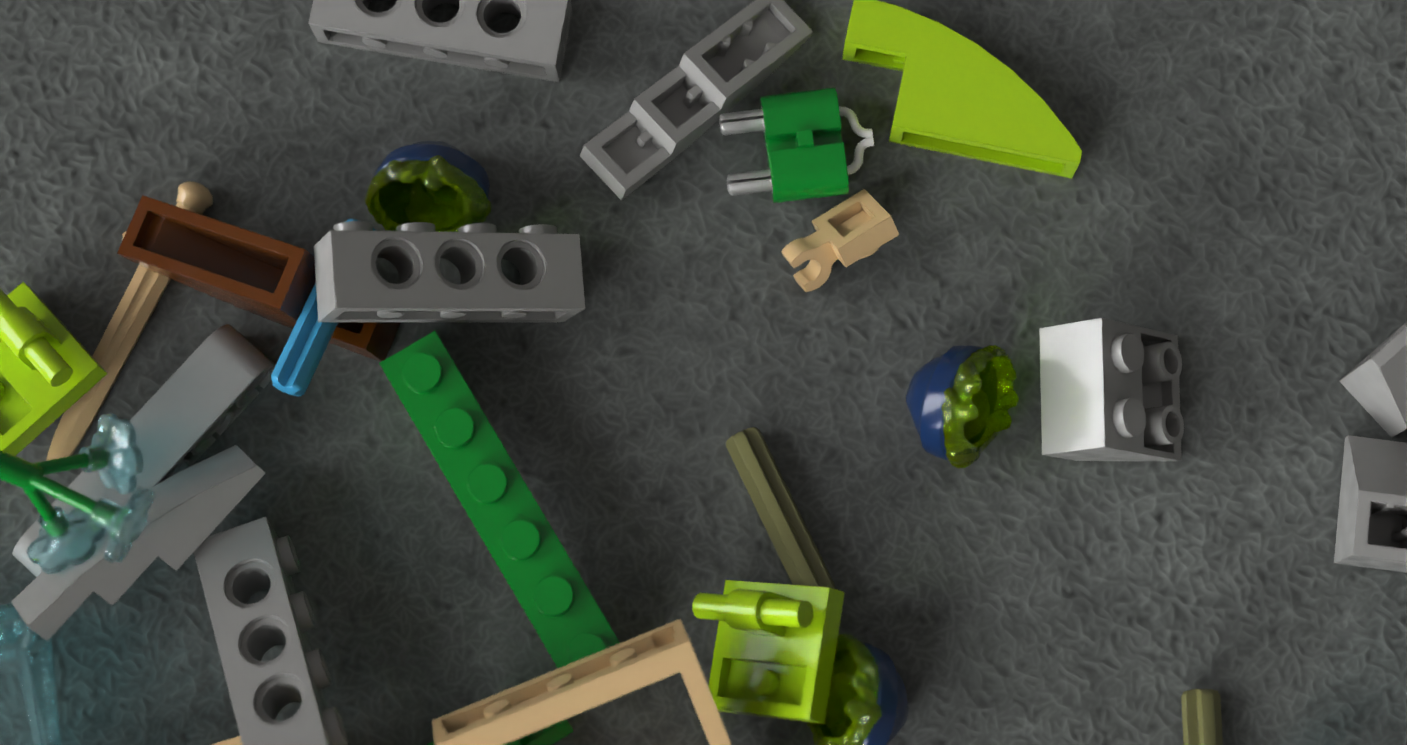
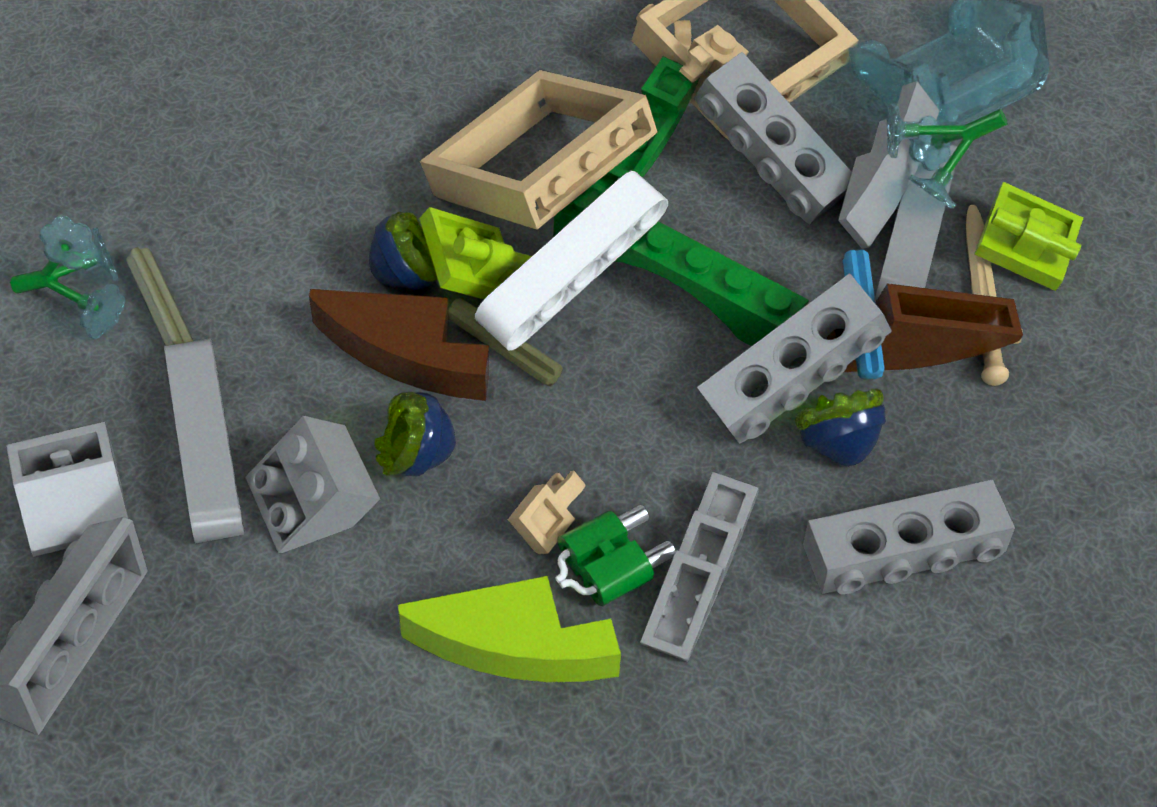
camera: 150 degrees right, 25 degrees down
(653, 547) = (571, 260): none -> white beam
(914, 565) = (403, 340): none -> reddish brown slope
(1223, 528) = (203, 441): none -> light grey beam

